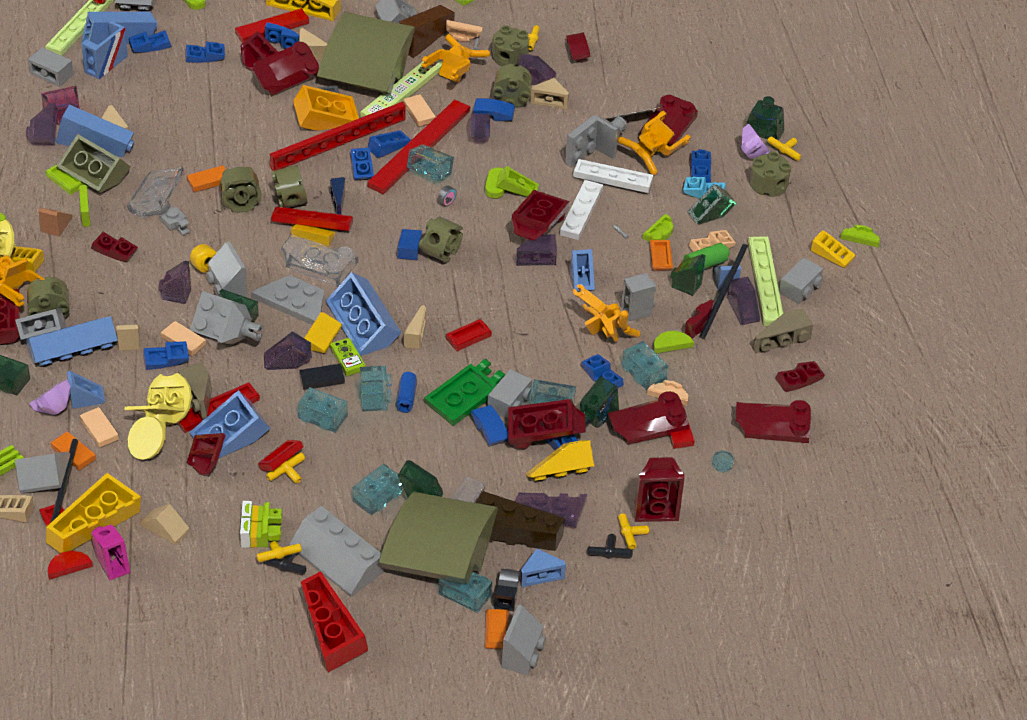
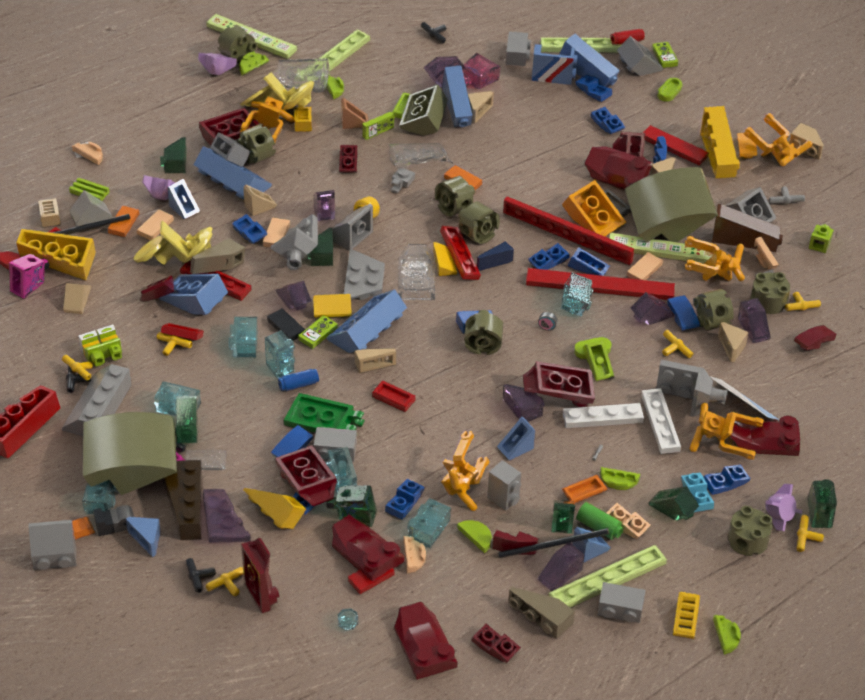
camera: 65 degrees right, 0 degrees up
(529, 130) = (676, 344): none -> yellow piece

